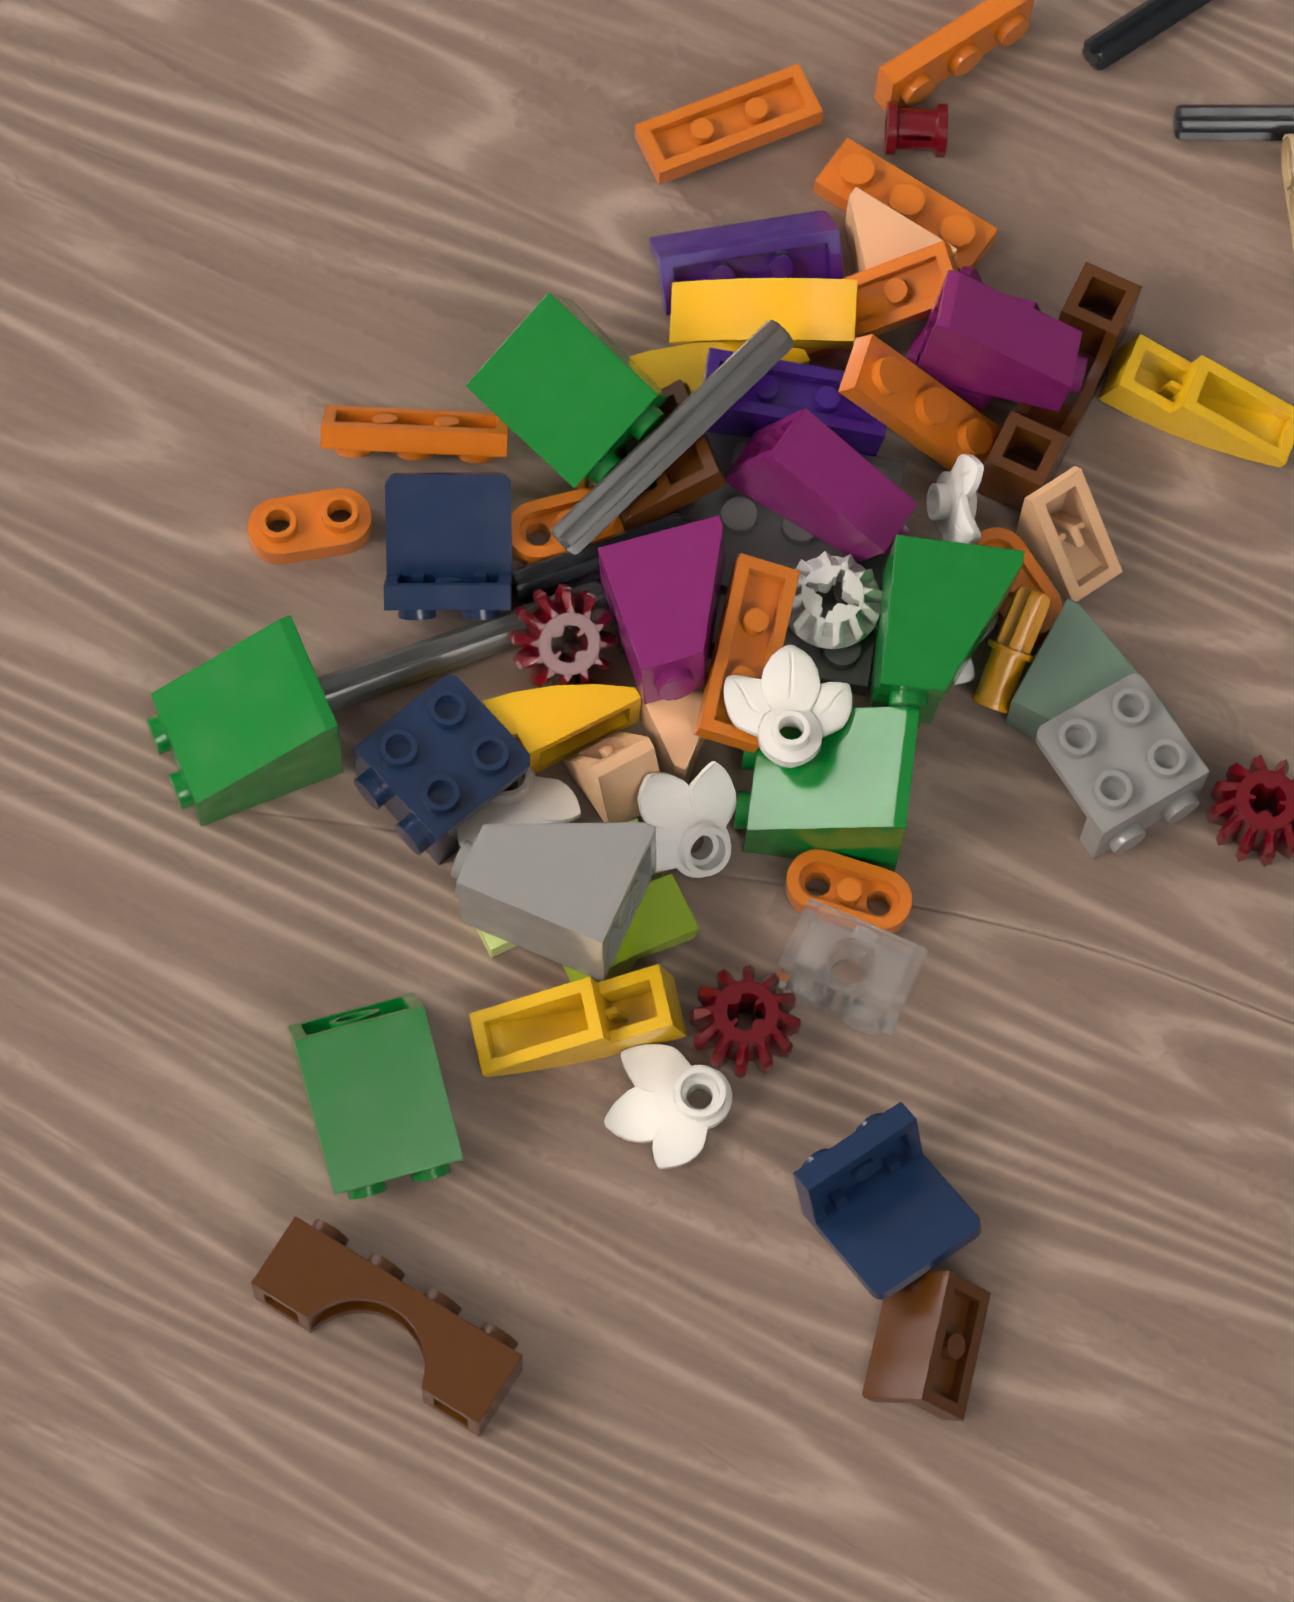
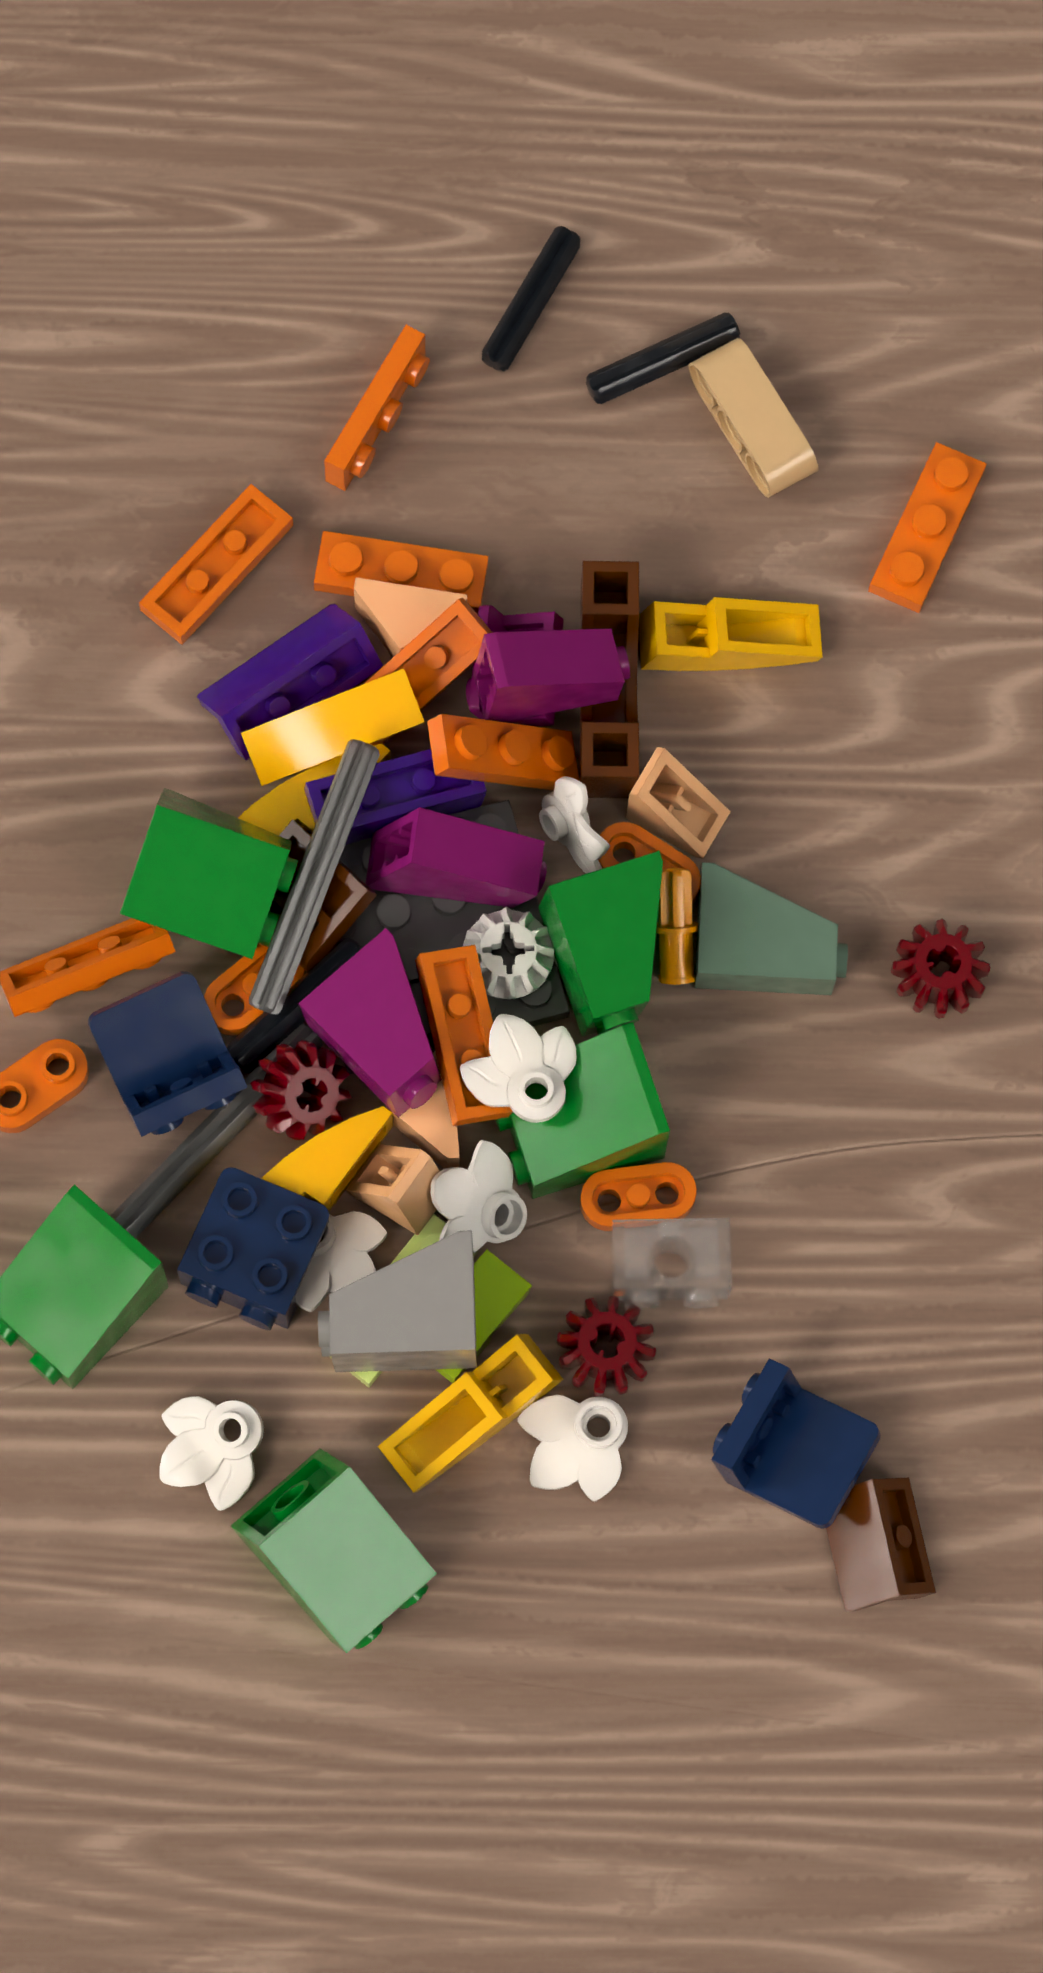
camera: 25 degrees left, 5 degrees up
(297, 944) = (203, 1451): none -> white plate
(318, 1278) = (364, 1726): reddish brown arch -> none
(916, 129) = (377, 497): dark red bush -> none
(1123, 764) = (811, 983): light grey bracket -> none

